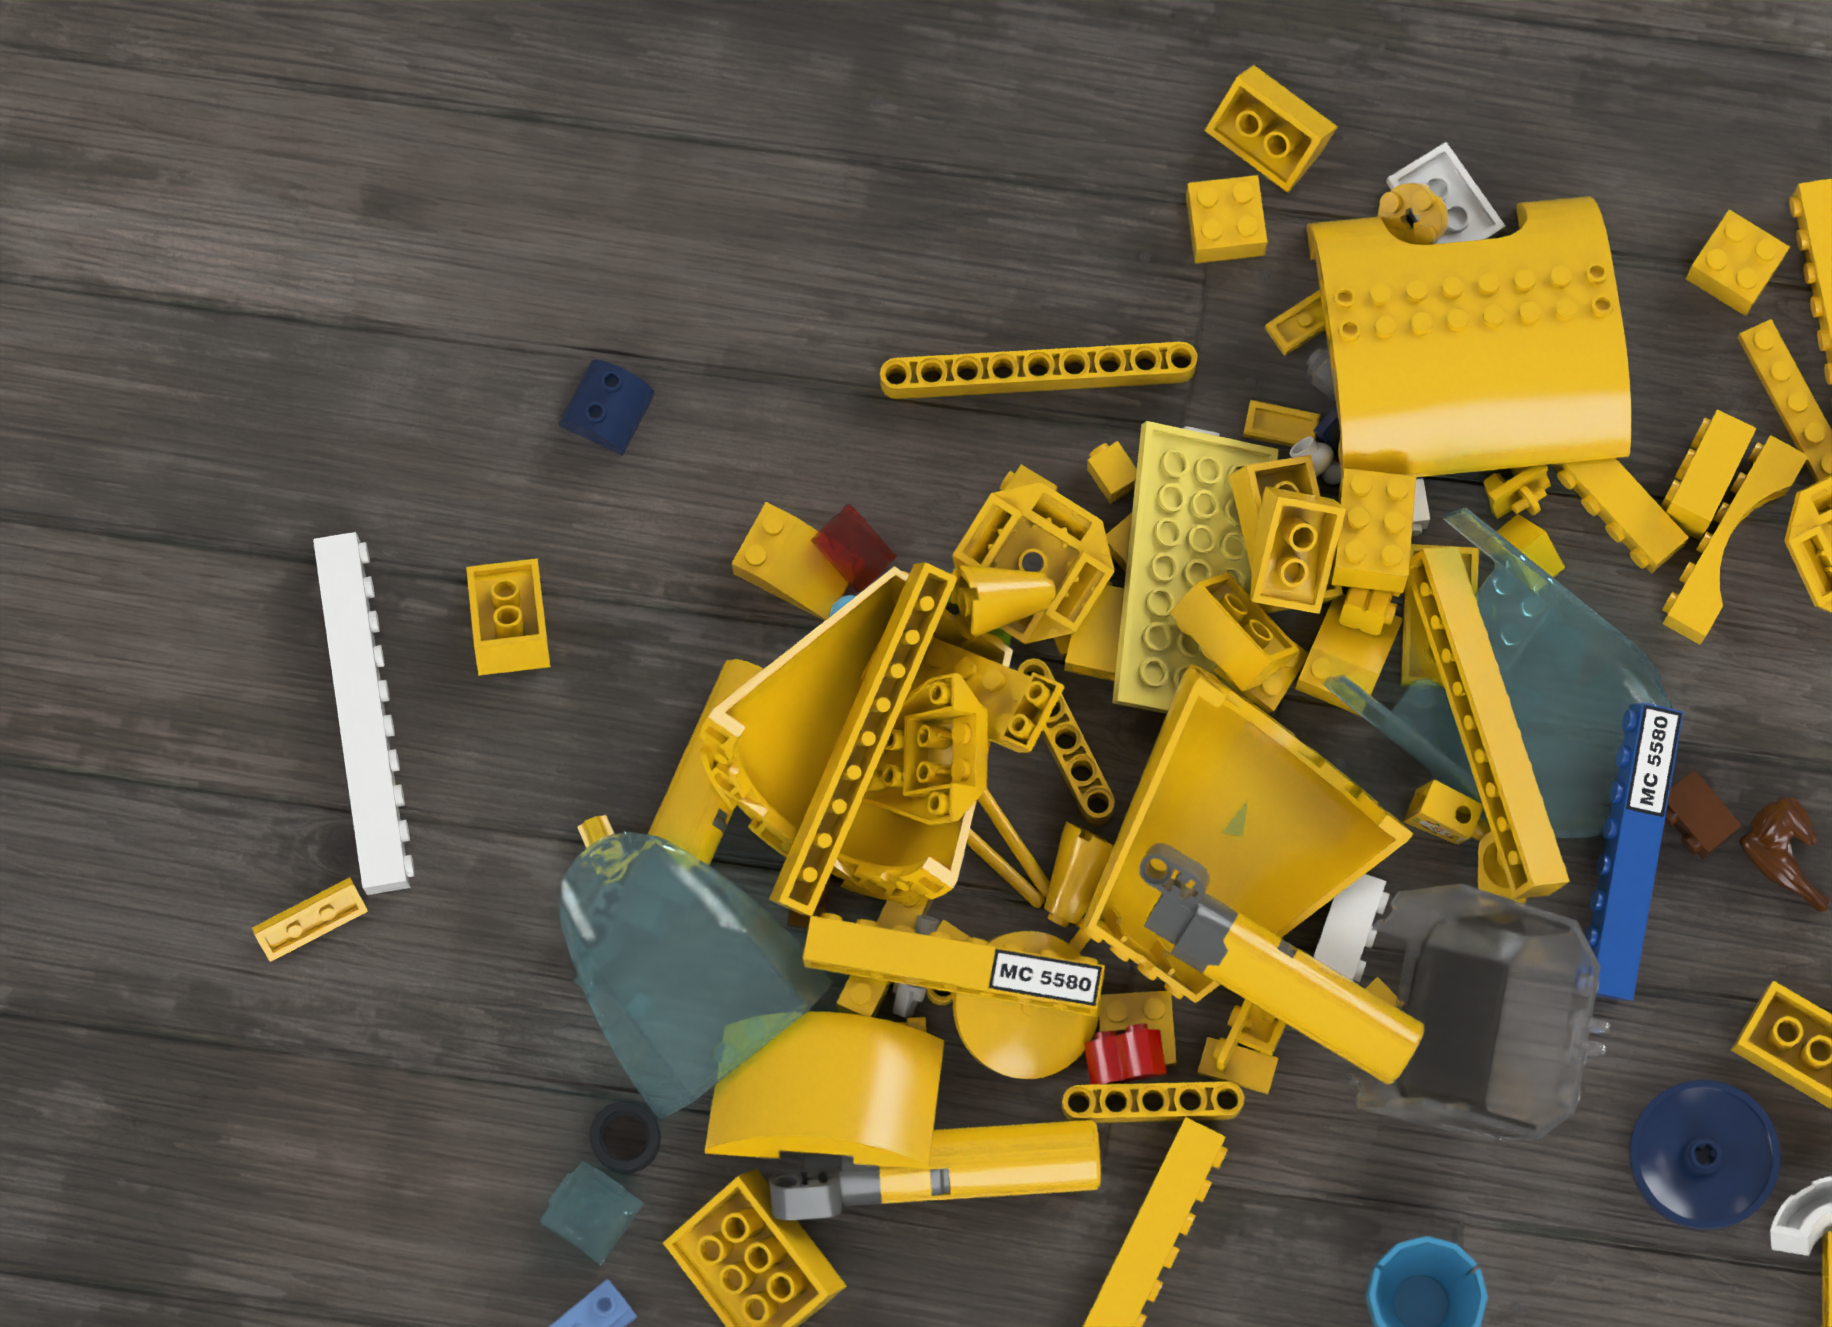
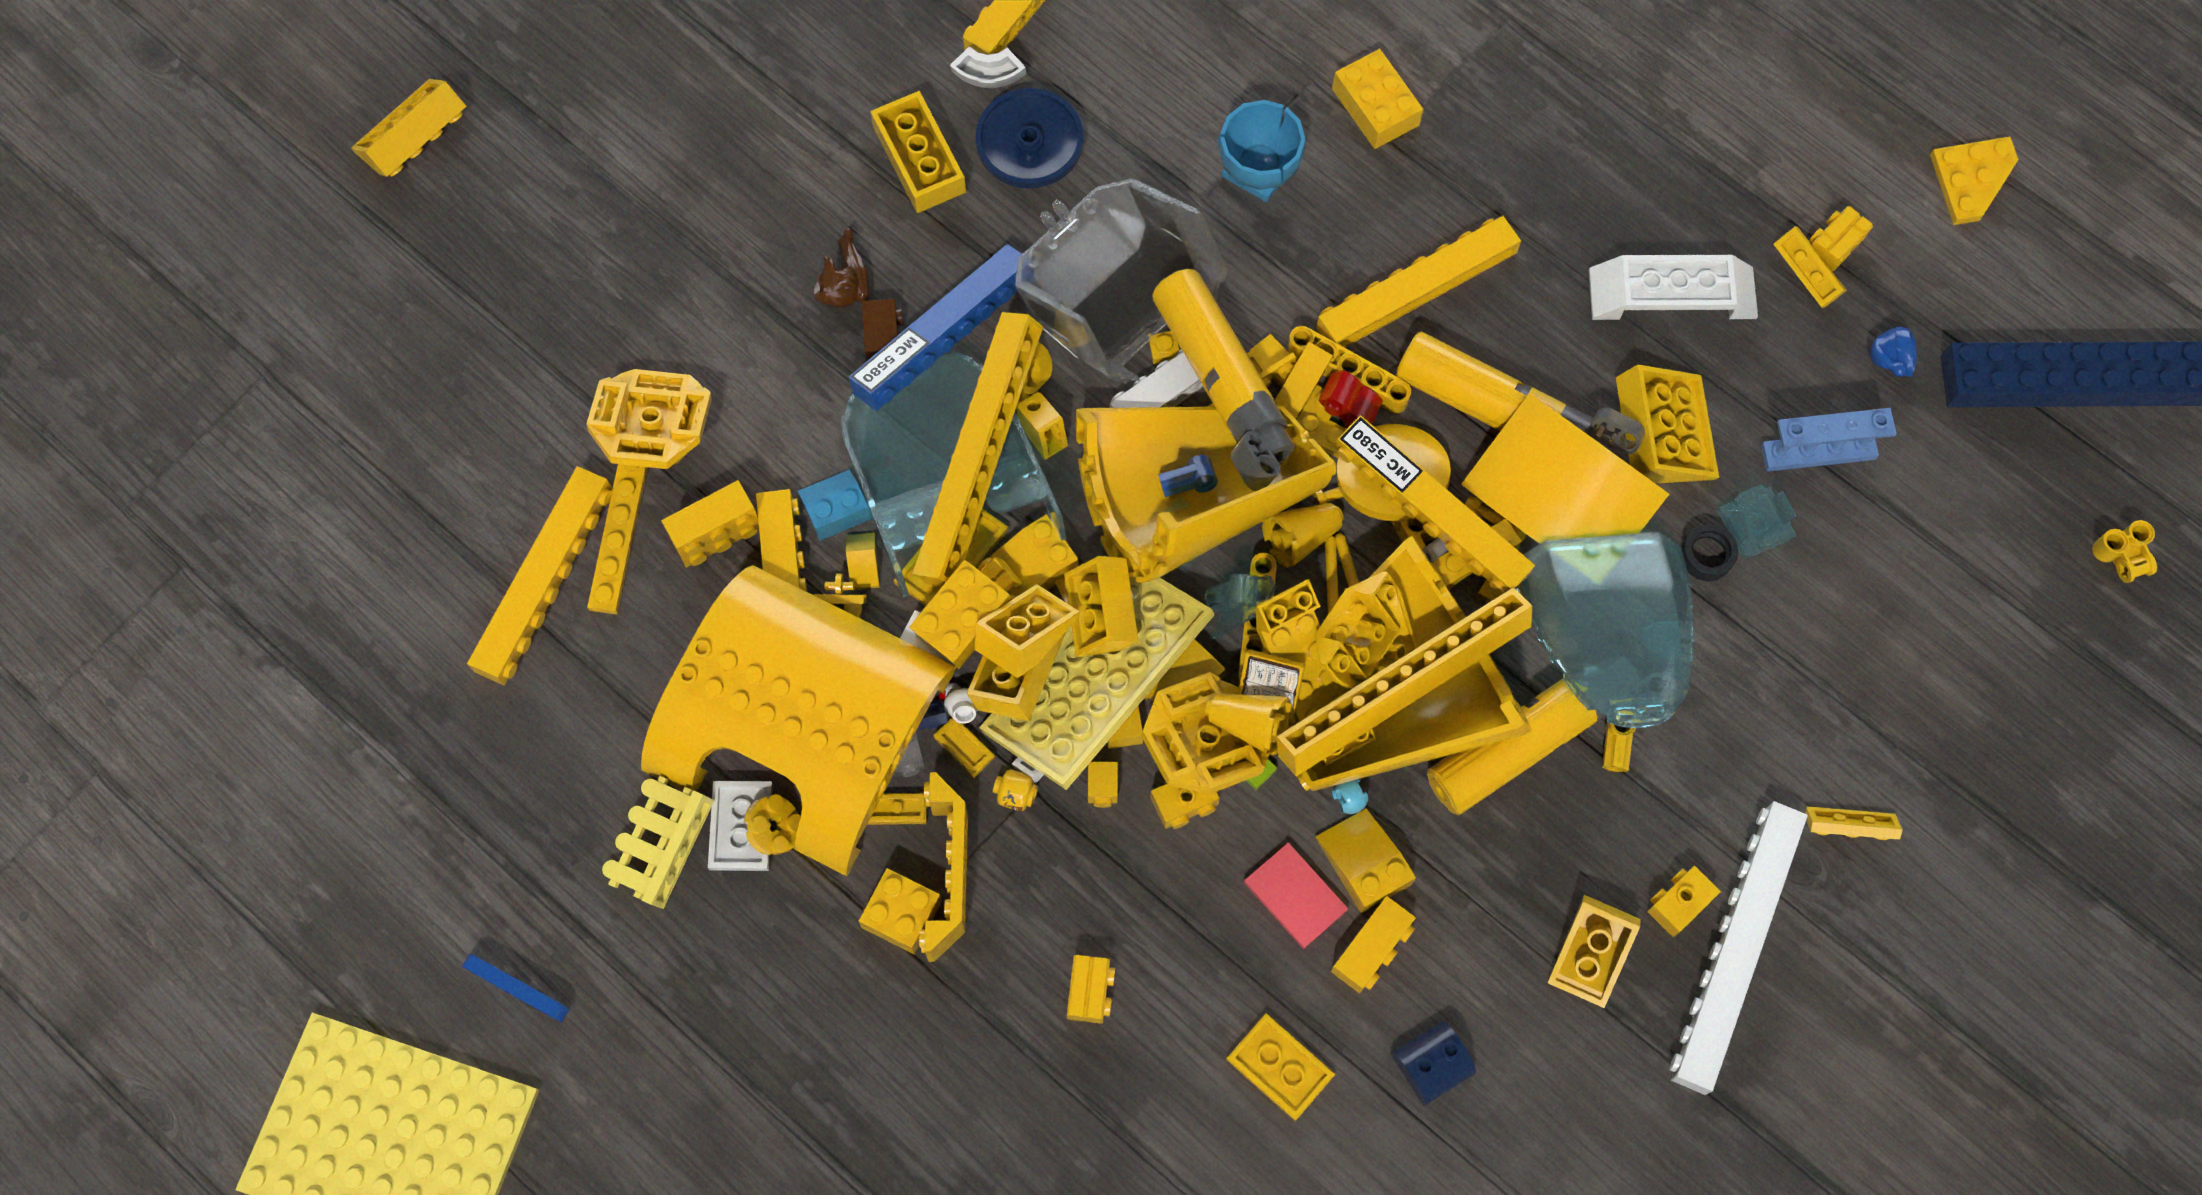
camera: 150 degrees left, 5 degrees down
(444, 723) = (1683, 901): none -> yellow brick
(733, 480) = (1374, 945): none -> yellow brick
(754, 312) = (1280, 1067): none -> yellow tile
(831, 477) = (1296, 895): none -> coral tile
(853, 548) = (1319, 841): clear red plate -> none
(989, 263) = (1089, 989): none -> yellow brick
(1003, 649) = (1272, 677): none -> tile
(1053, 359) = (1099, 875): yellow beam -> none
(1094, 747) = (1237, 600): none -> clear light blue panel
(1193, 1045) = (1303, 379): none -> yellow tile
(1197, 408) = (1015, 790): none -> yellow head
(1237, 859) = (1197, 475): none -> blue piece
(1260, 347) = (942, 934): none -> yellow slope
(1270, 128) = (820, 960): yellow slope -> none
(1497, 153) = (673, 848): none -> light yellow fence
(1609, 582) = (835, 504): none -> dark azure slope
(1700, 599) = (779, 457): yellow arch -> none
(1737, 262) = (579, 655): yellow brick -> none

